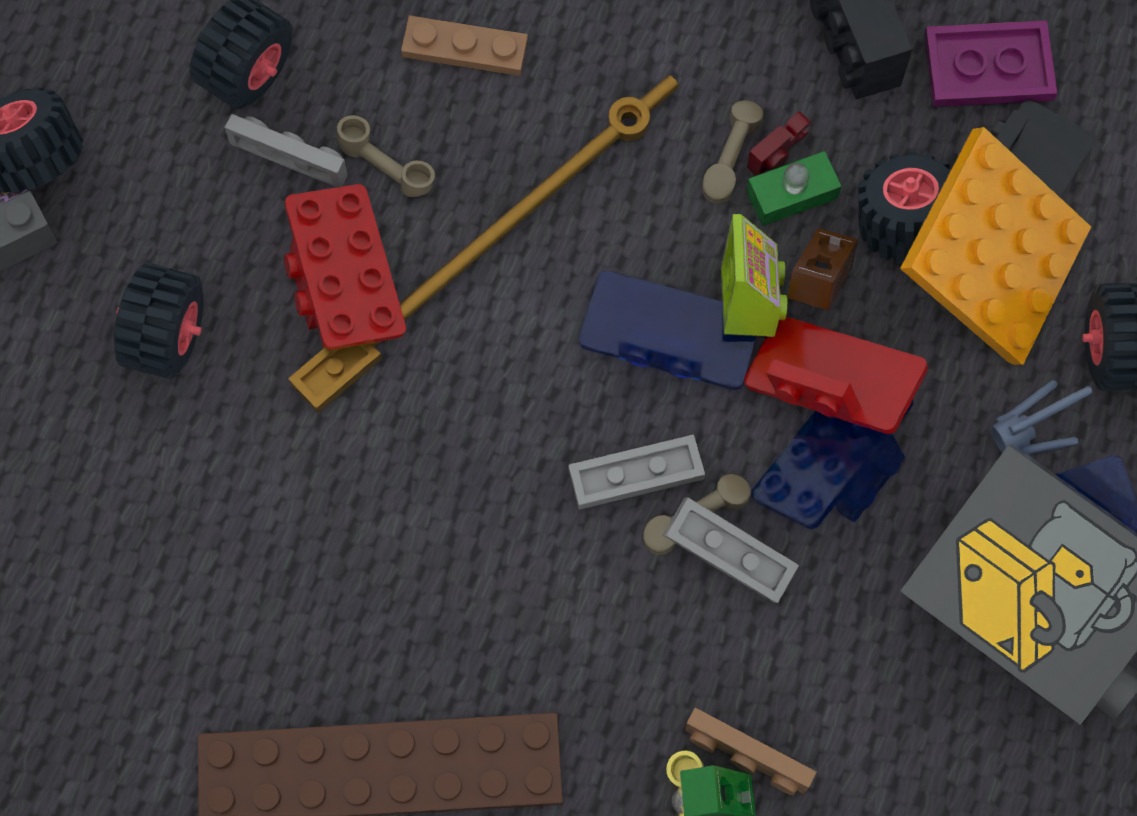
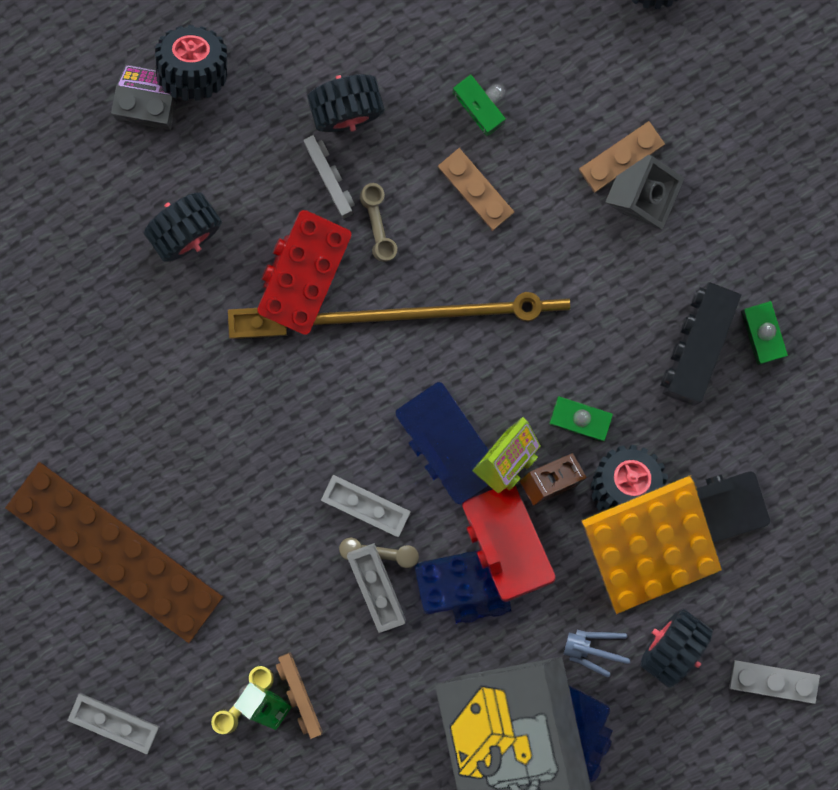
camera: 40 degrees right, 15 degrees up
(720, 178) = (545, 382): dark tan bar -> none
(773, 149) = (587, 389): dark red plate -> none
(990, 63) = (751, 434): magenta plate -> none

